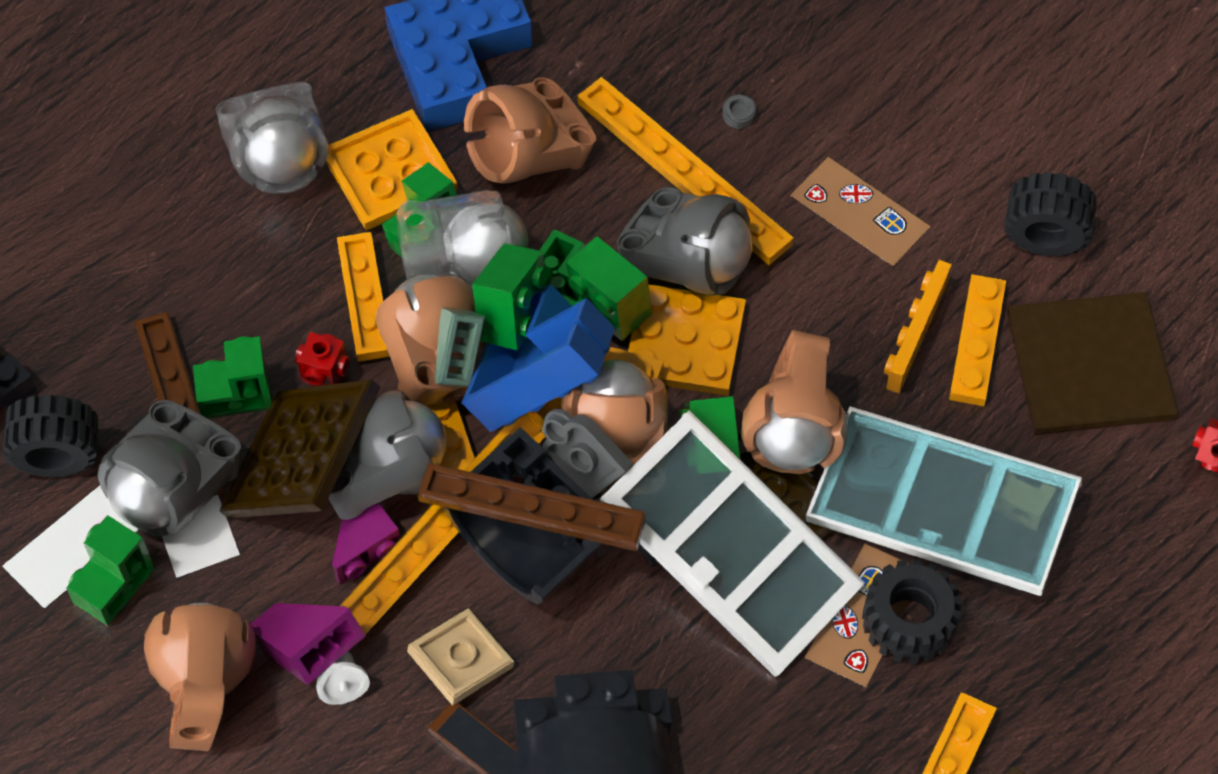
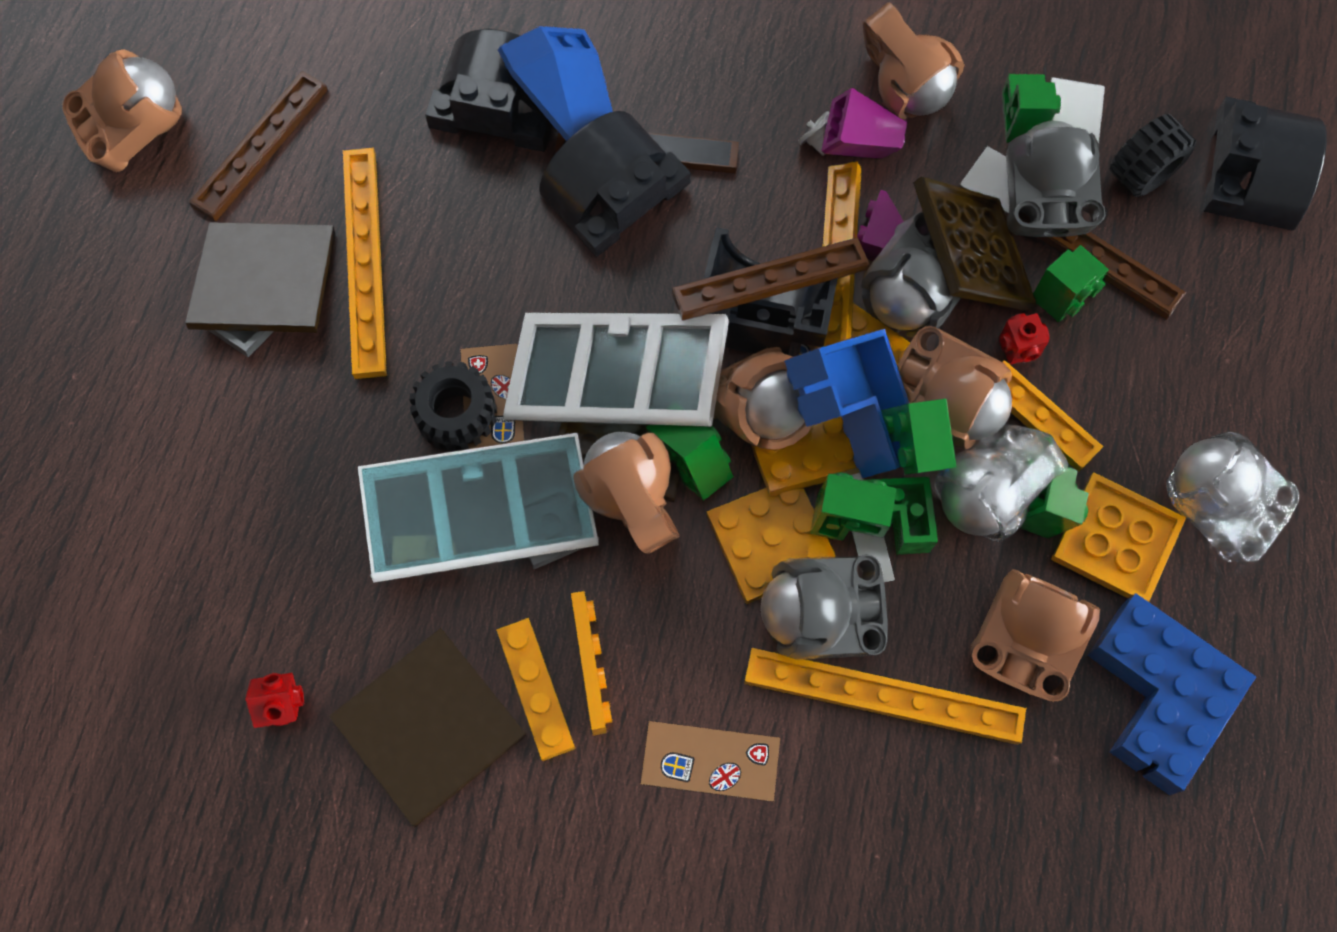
camera: 145 degrees right, 10 degrees up
(447, 333) = (926, 371): sand green slope -> none
(460, 656) = (753, 197): tan tile -> none
(583, 451) = (752, 346): dark grey plate -> none
(739, 111) = (881, 796): dark grey tile -> none
(1050, 214) = (530, 833): black tyre -> none

